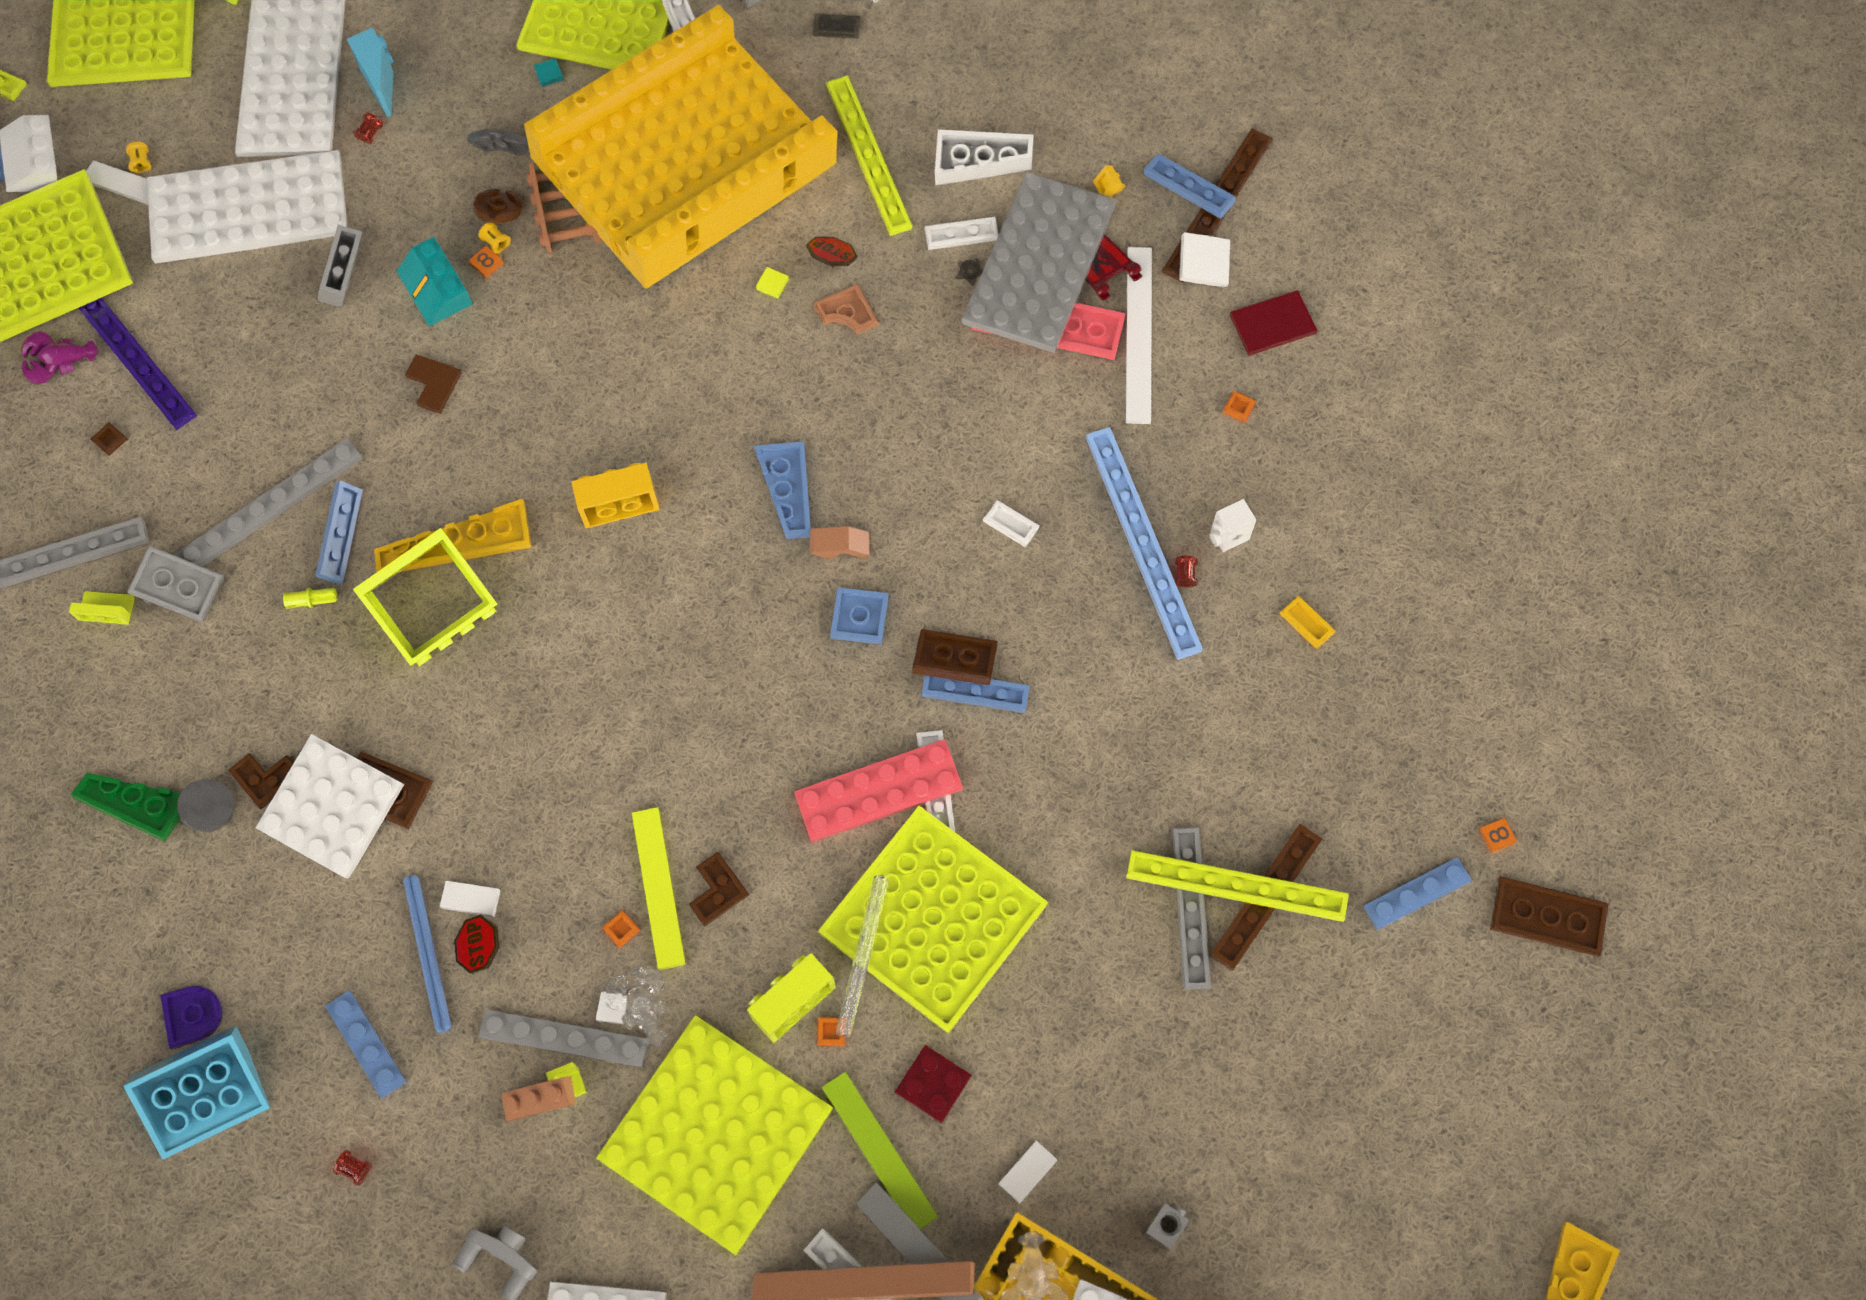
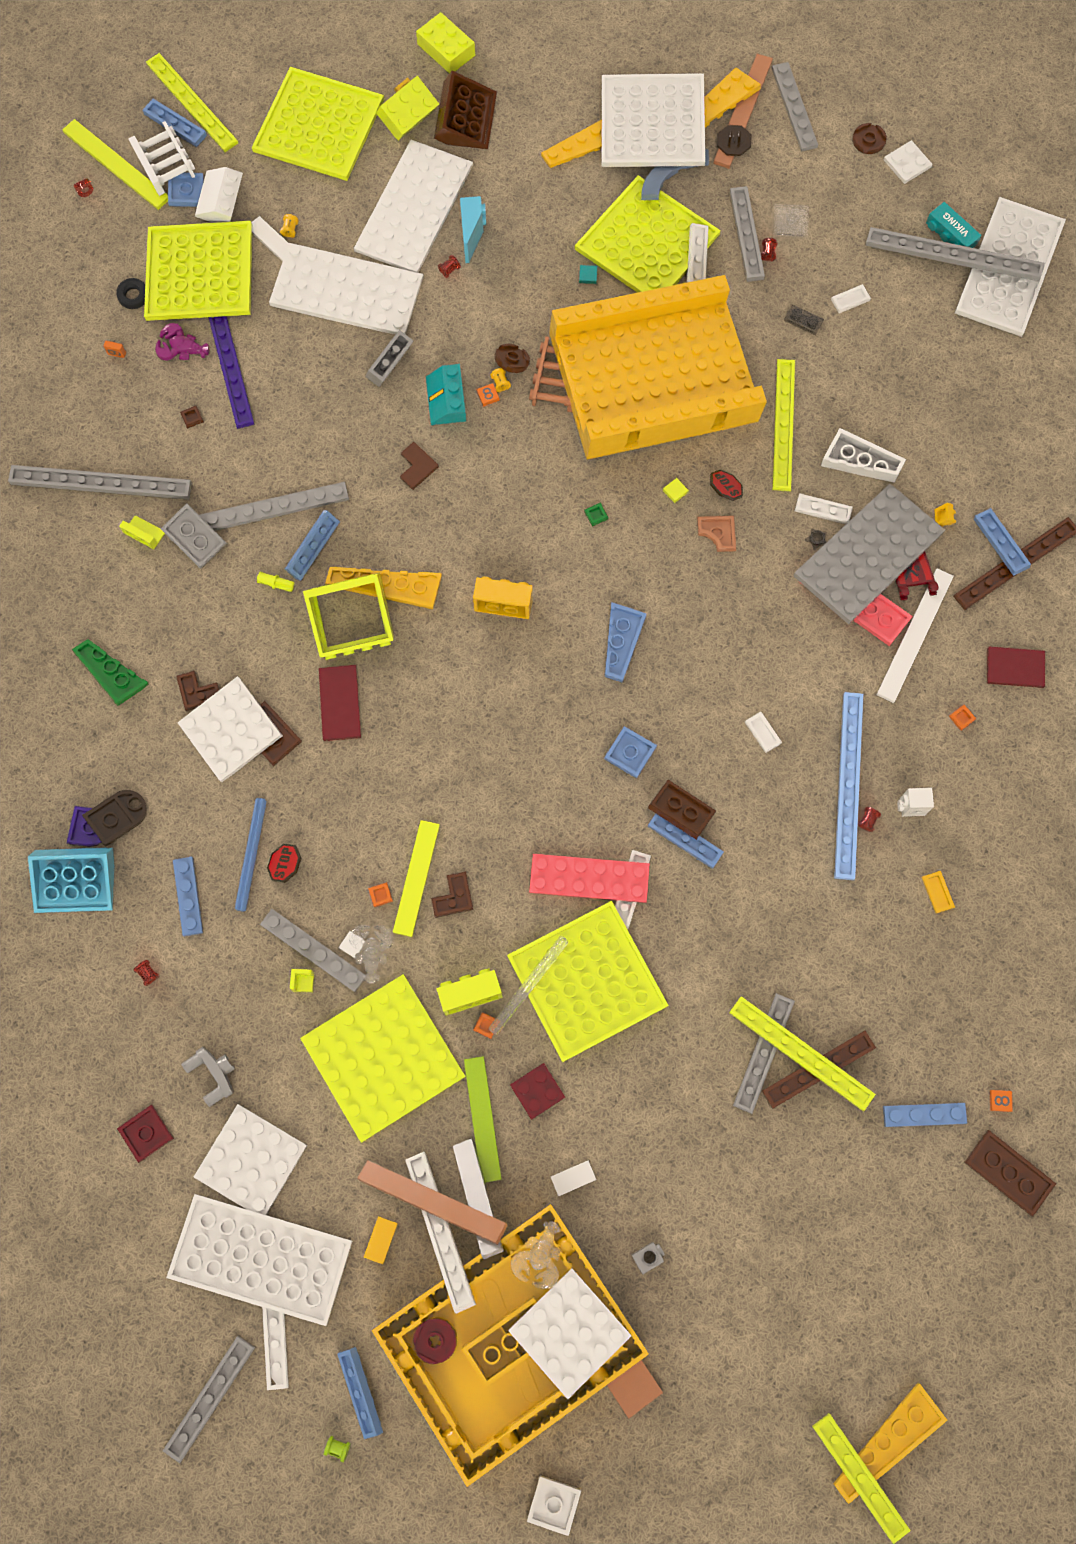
camera: 25 degrees right, 5 degrees up
(205, 805) = (152, 693): flat silver tile -> none
(222, 984) = (115, 816): none -> dark brown tile
(461, 712) = (339, 703): none -> dark red tile
(469, 898) = (292, 830): white tile -> none
(499, 140) = (532, 311): flat silver tile -> none
(538, 1098) = (279, 983): nougat plate -> none
(687, 350) = (596, 514): none -> green tile
(838, 540) = (637, 693): nougat slope -> none
(1204, 260) = (987, 600): white tile -> none

